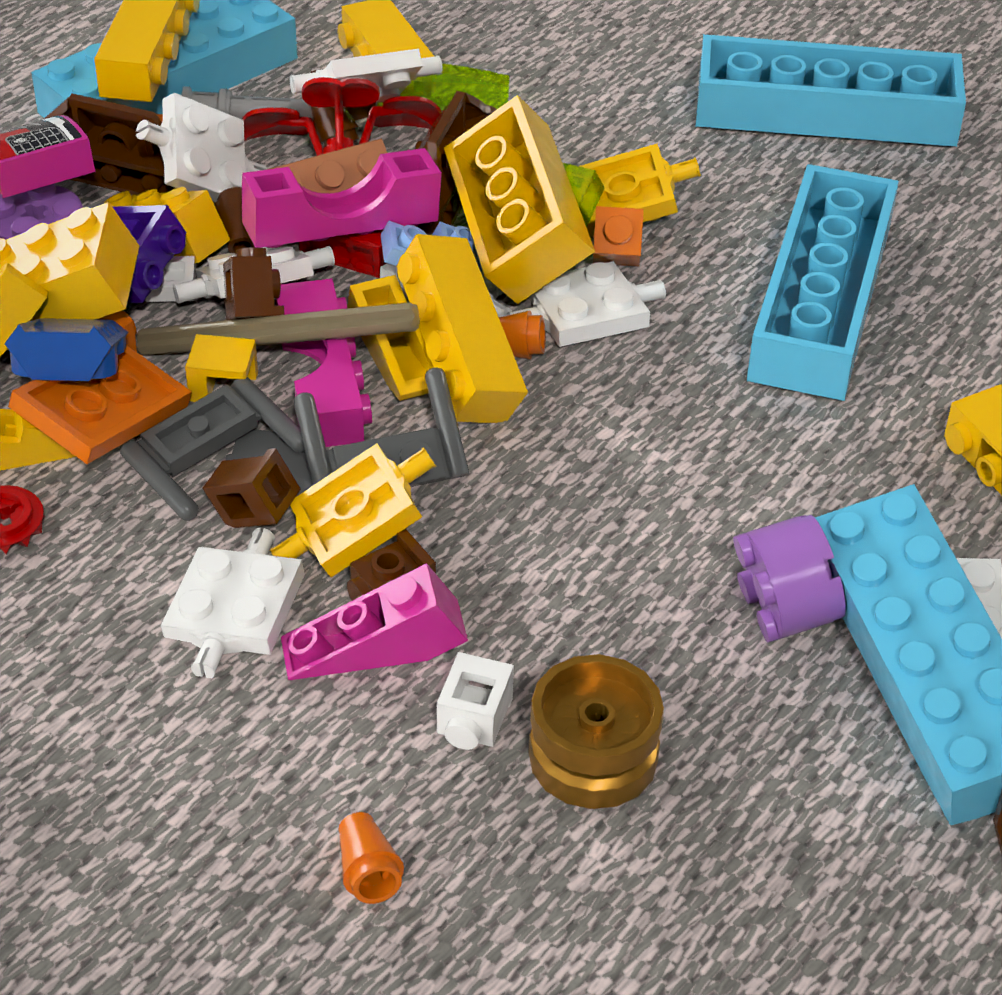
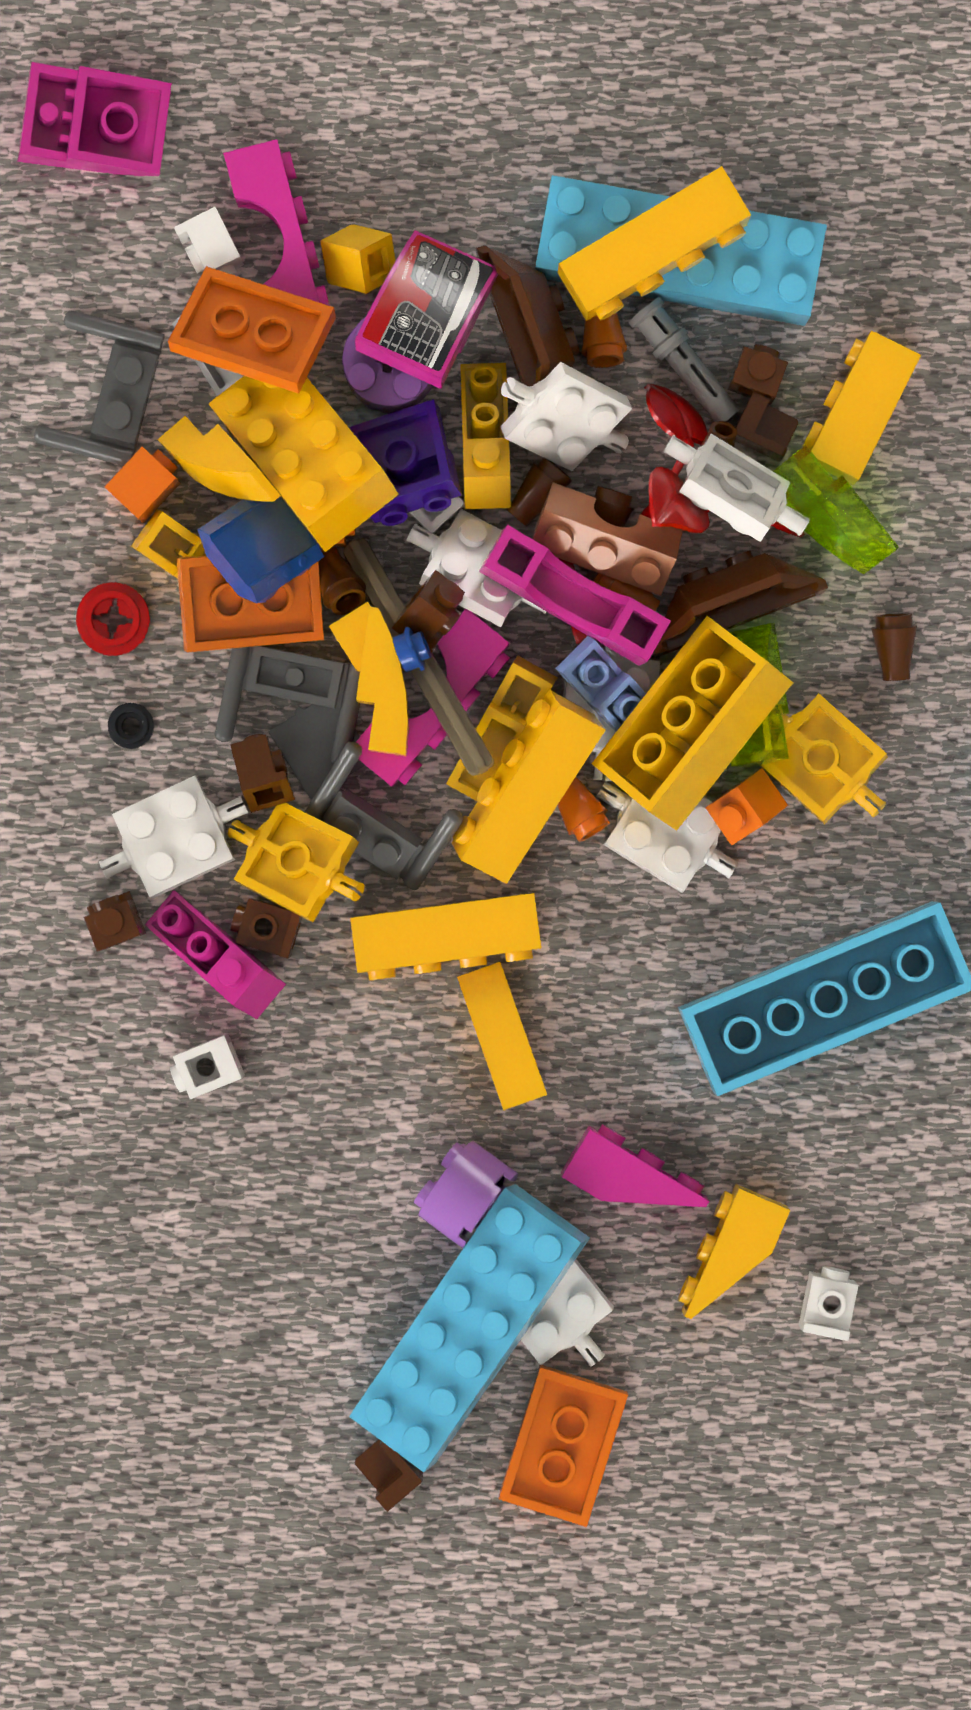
camera: 50 degrees right, 45 degrees up
(102, 564) = (116, 721): none -> black plate
(166, 348) = (340, 584): none -> reddish brown cone
(260, 679) = (114, 921): none -> reddish brown brick
(267, 302) = (411, 649): none -> blue plate
(277, 345) = (384, 687): none -> yellow slope
(297, 59) = (758, 371): none -> reddish brown brick
(368, 860) = (47, 1095): orange cone -> none
(528, 468) = (446, 933): none -> yellow brick
(575, 120) = (894, 642): none -> reddish brown cone
(595, 731) = (256, 1144): pearl gold wheel -> none
(666, 485) = (502, 1036): none -> yellow slope
(872, 470) = (619, 1175): none -> dark pink slope

